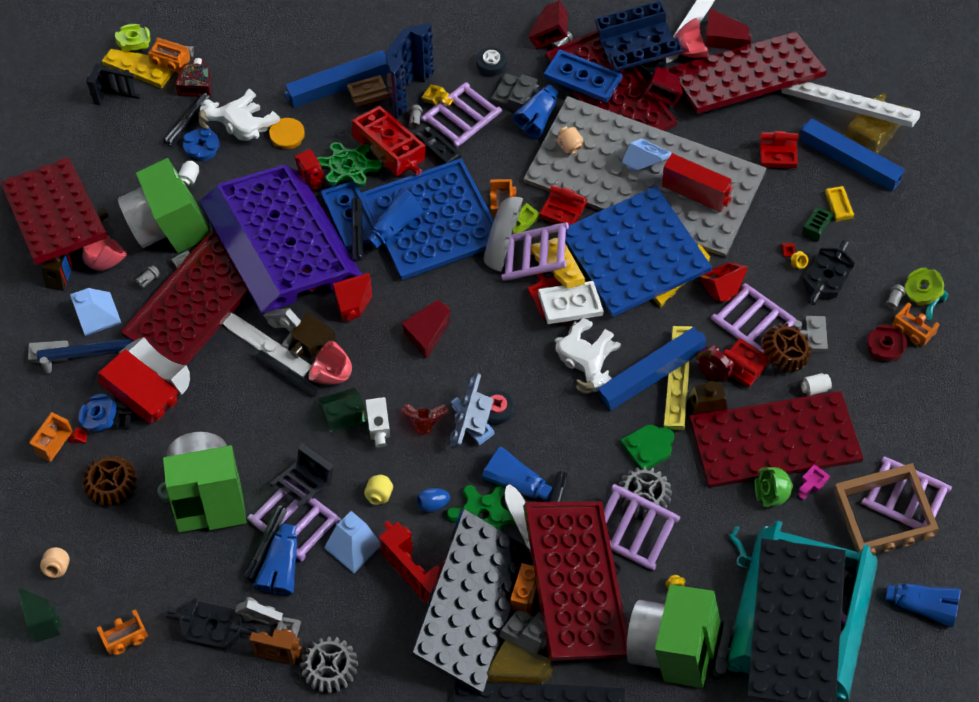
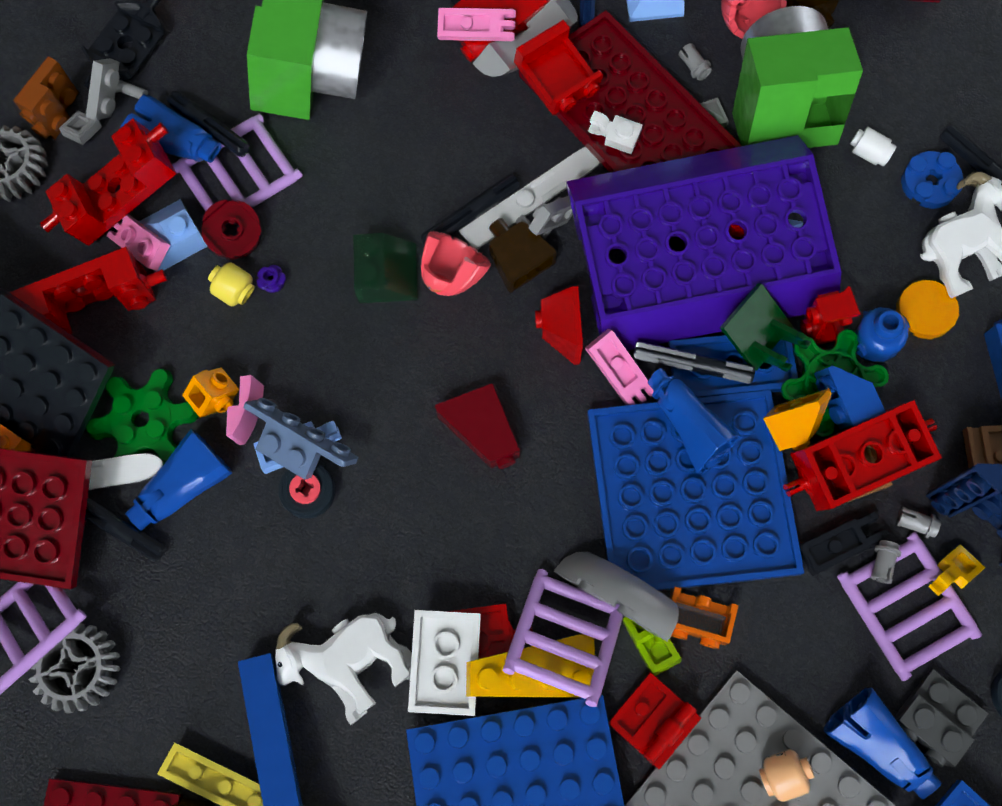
camera: 110 degrees right, 15 degrees up
(159, 390) = (475, 24): none -> bright pink hinge
(181, 338) = (556, 69): none -> red panel
(216, 295) = (619, 134): none -> white plate
(311, 469) = (294, 205): black plate -> none
(313, 140) = (881, 334): none -> blue piece
(314, 559) = (94, 206): none -> red brick
(324, 198) = (758, 327): none -> dark green plate
(342, 492) = (231, 212): none -> dark red plate
(358, 151) = (851, 399): none -> blue slope
(364, 553) = (140, 241): none -> bright pink hinge
(366, 476) = (273, 285): none -> dark purple plate
(372, 263) = (619, 368): none -> bright pink hinge
(377, 170) = (797, 420): none -> light orange slope
(378, 421) = (337, 307): white torso -> none
(424, 418) = (330, 368): clear red axle -> none
(432, 499) = (186, 352): blue animal -> none
(442, 124) = (885, 561): none -> light grey pin
(454, 473) = (210, 392): none -> light orange brick
(466, 453) = (240, 421): none -> bright pink slope
(649, 445) = (156, 707): green plate -> none

